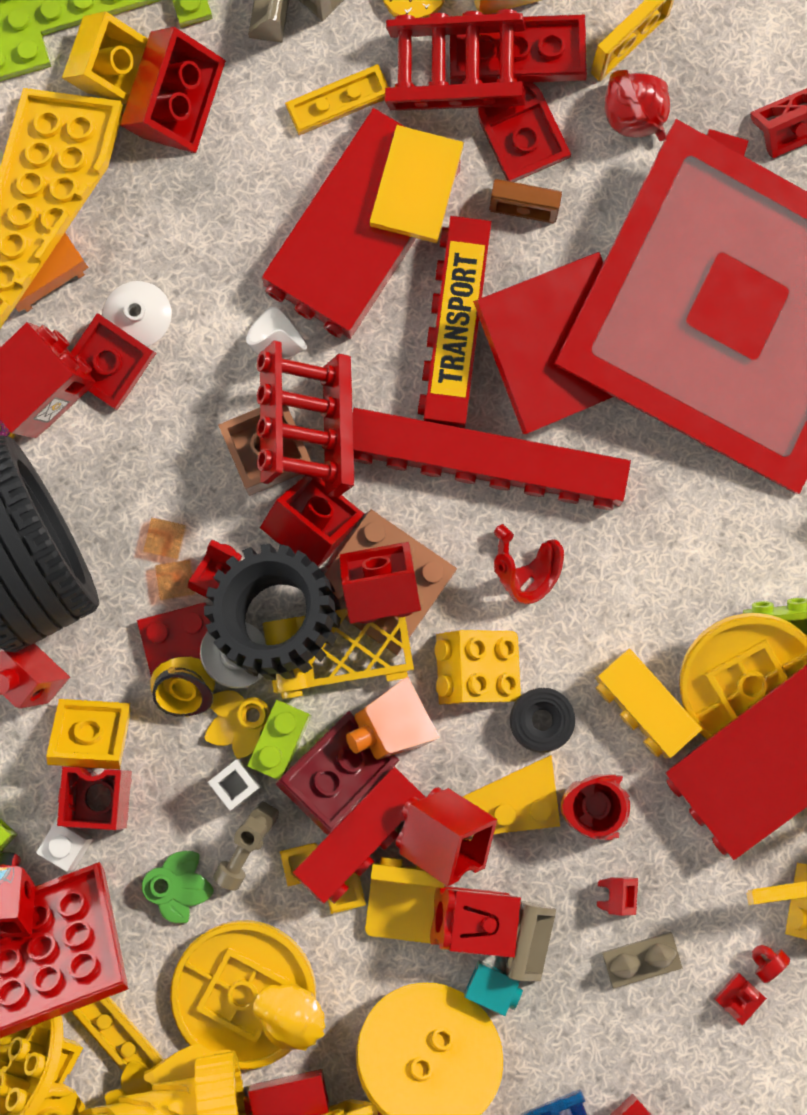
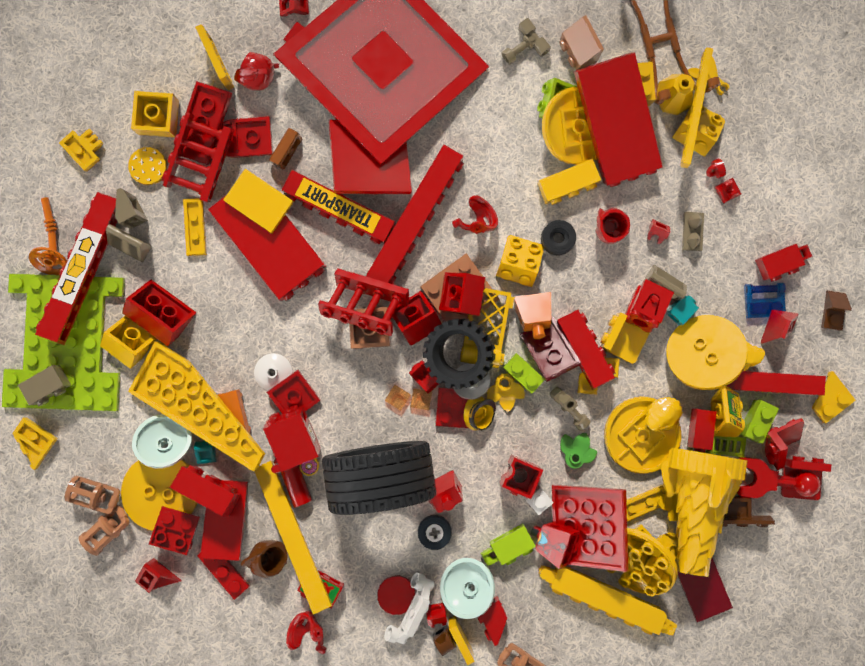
camera: 70 degrees left, 5 degrees up
(88, 734) = (486, 469): yellow plate -> none
(235, 784) = (538, 403): white brick -> none
(275, 326) = (308, 303): white helmet -> none
(438, 833) = (601, 305): red piece -> none
(521, 799) = (594, 269): yellow wing -> none

